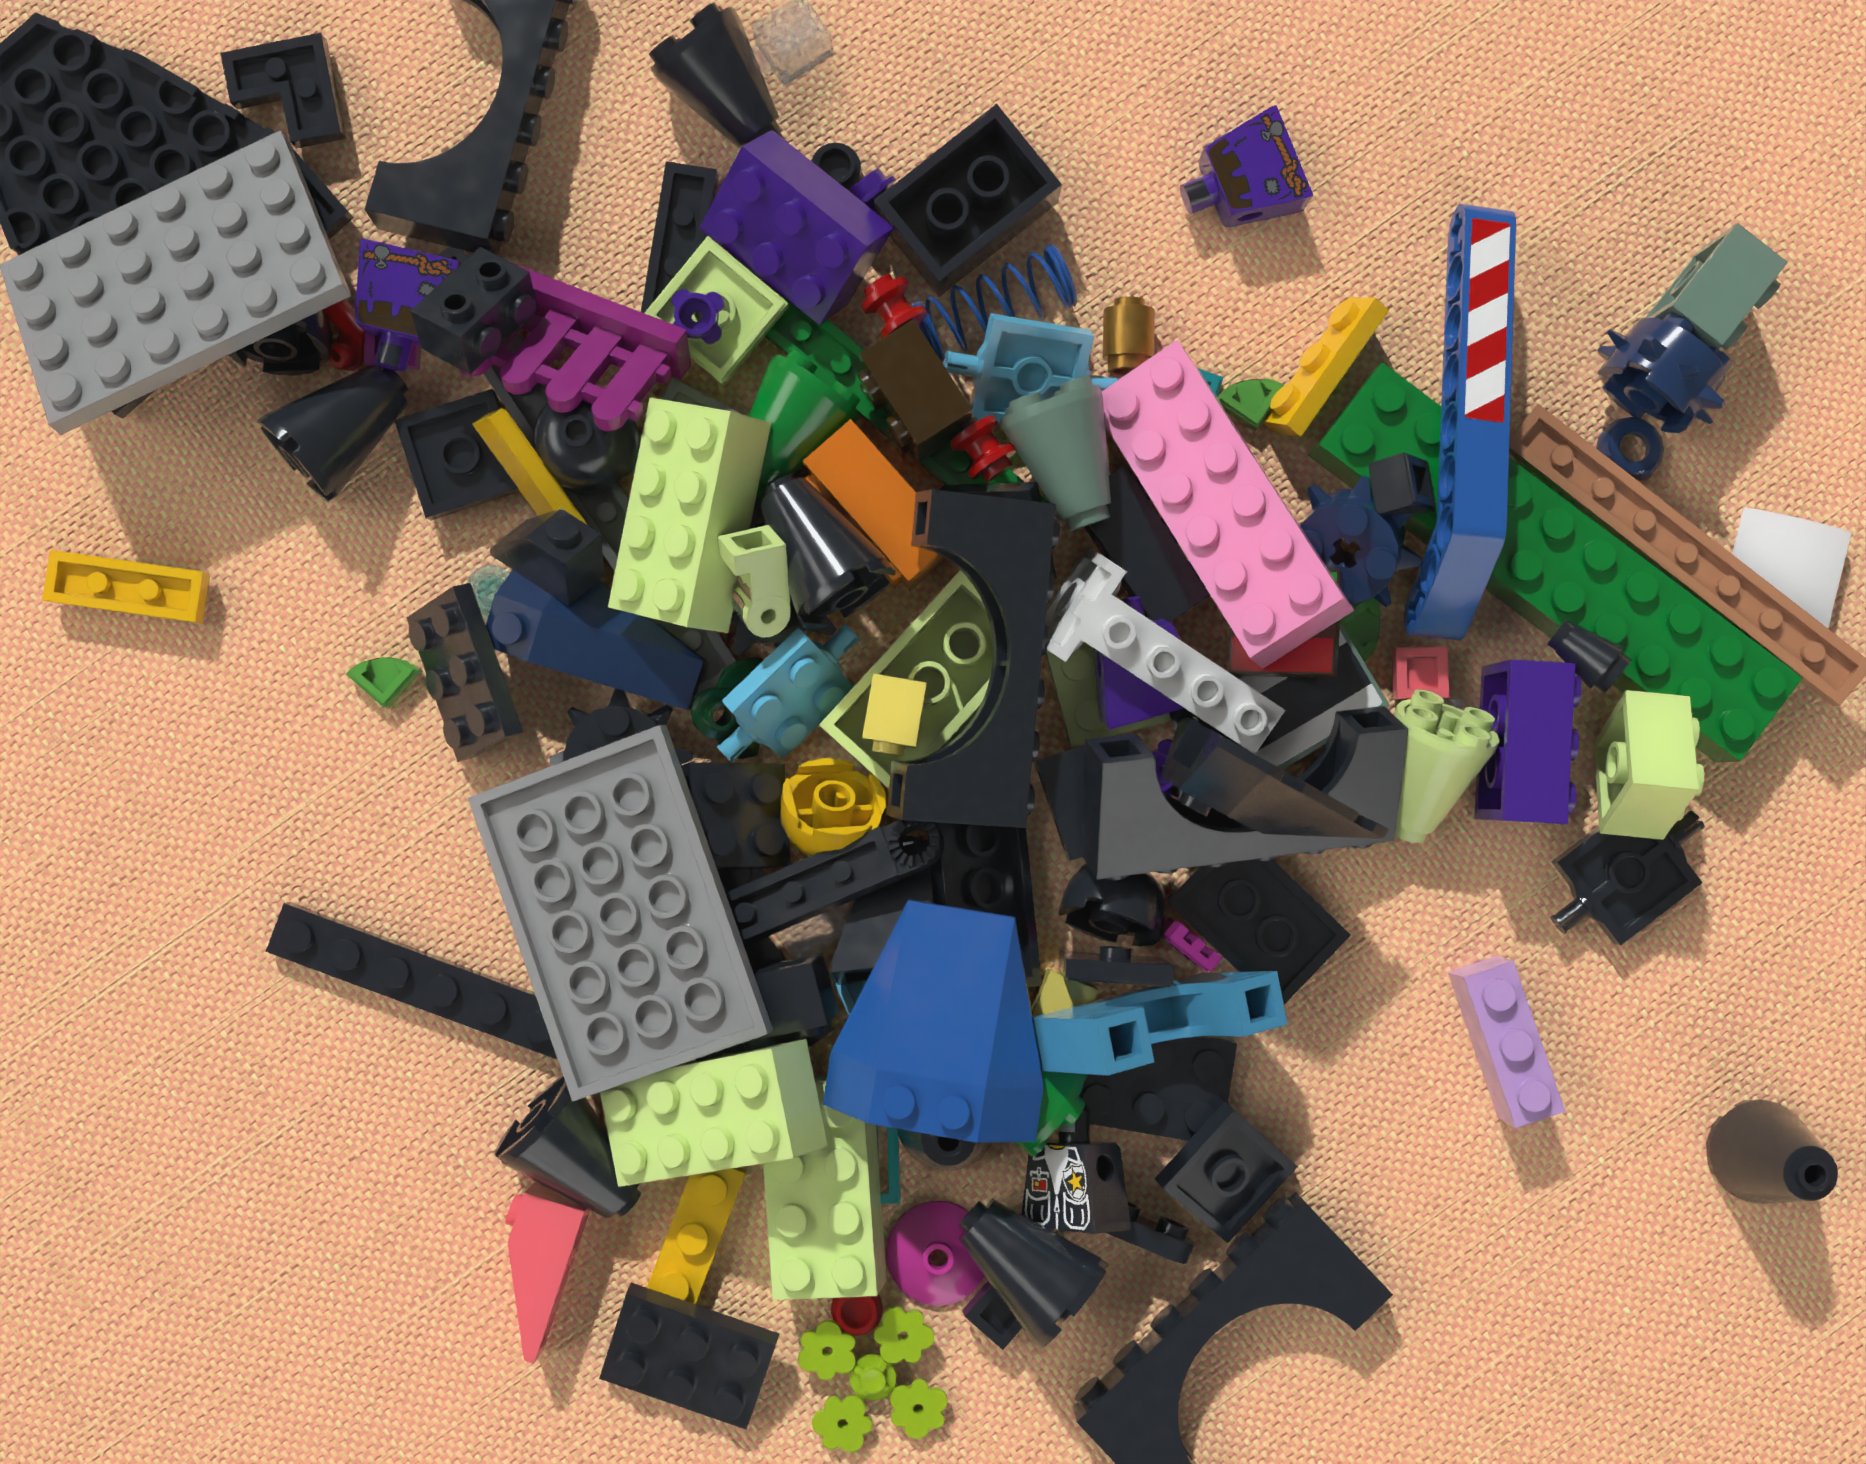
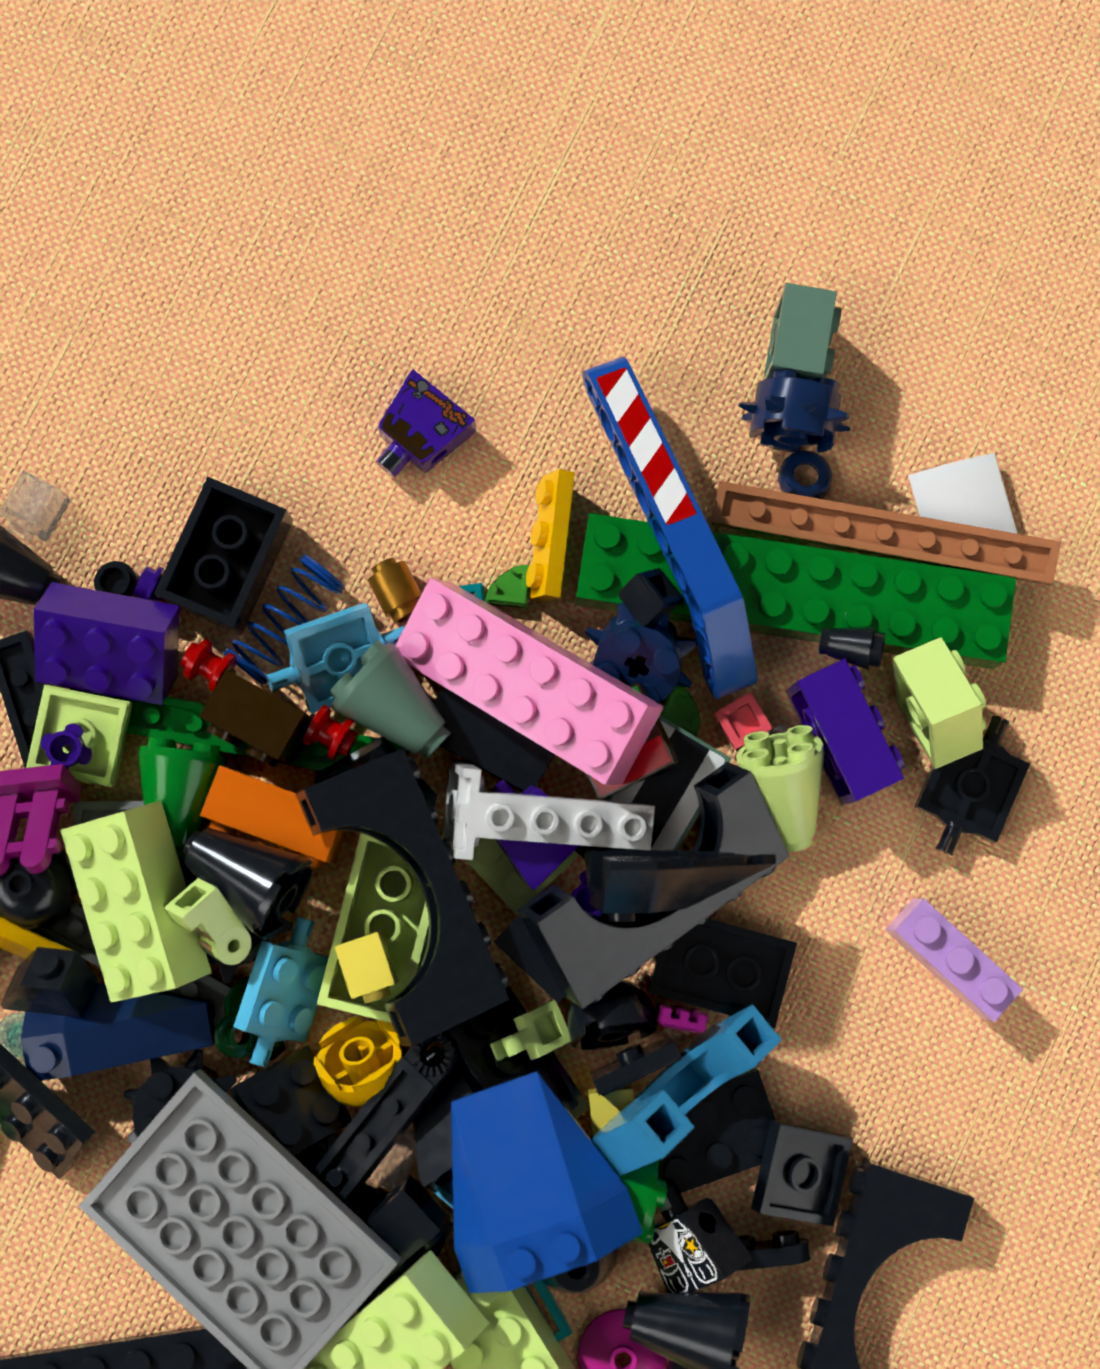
camera: 30 degrees left, 5 degrees down
(1032, 879) = (538, 1033): none -> yellowish green plate

